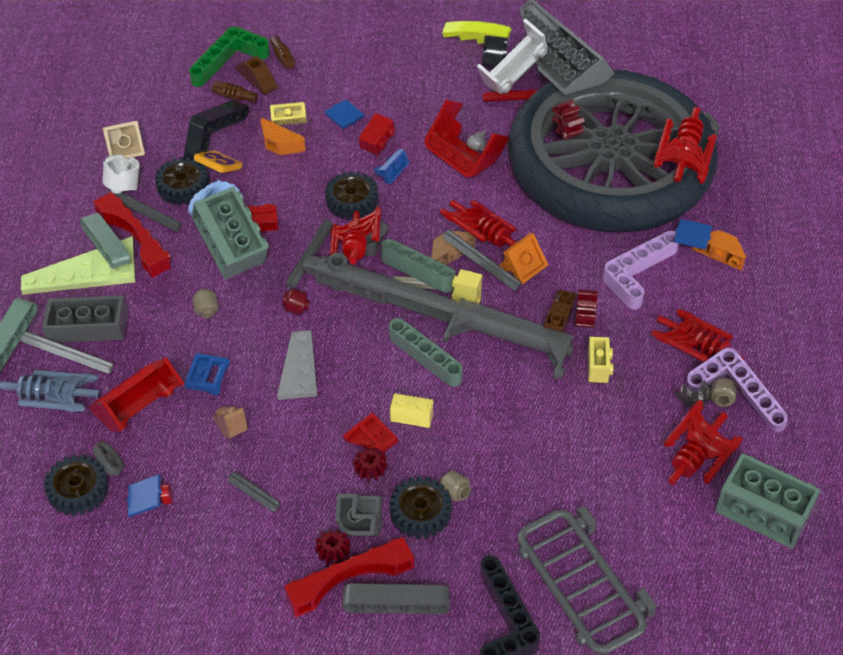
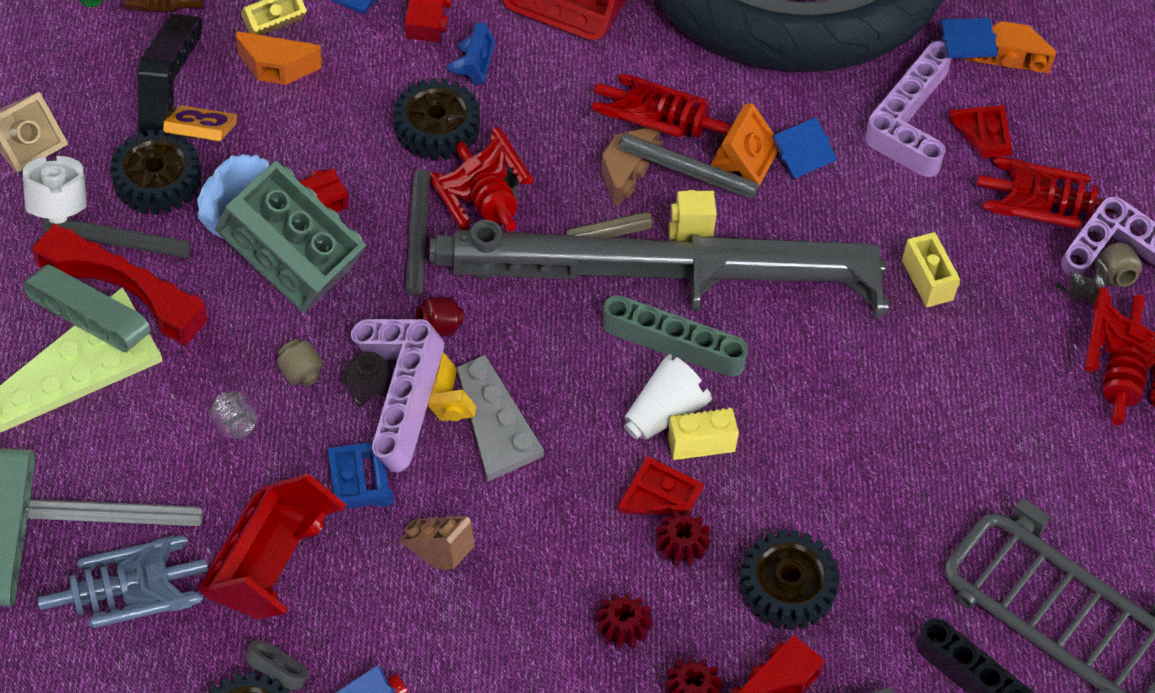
camera: 25 degrees left, 5 degrees up
(85, 319) = (121, 448): dark grey brick -> none
(154, 319) = (233, 414): none -> clear head
(239, 321) = (367, 383): none -> clear smoke piece
(254, 491) = (528, 639): dark grey axle -> none
(266, 316) = (418, 356): none -> lavender beam
(275, 342) = (443, 400): none -> yellow bracket
(311, 498) = (625, 608): none -> dark red gear
(359, 515) = (710, 623): dark grey brick -> none
(401, 381) = (668, 392): none -> white cone
(417, 265) = (599, 203): sand green beam -> none
(457, 485) = (825, 526): dark tan head -> none
(560, 270) = (804, 148): none -> blue piece
(560, 311) = (841, 212): reddish brown slope -> none
(586, 308) = (876, 197): dark red gear -> none
(679, 290) = (984, 129): none -> red wing

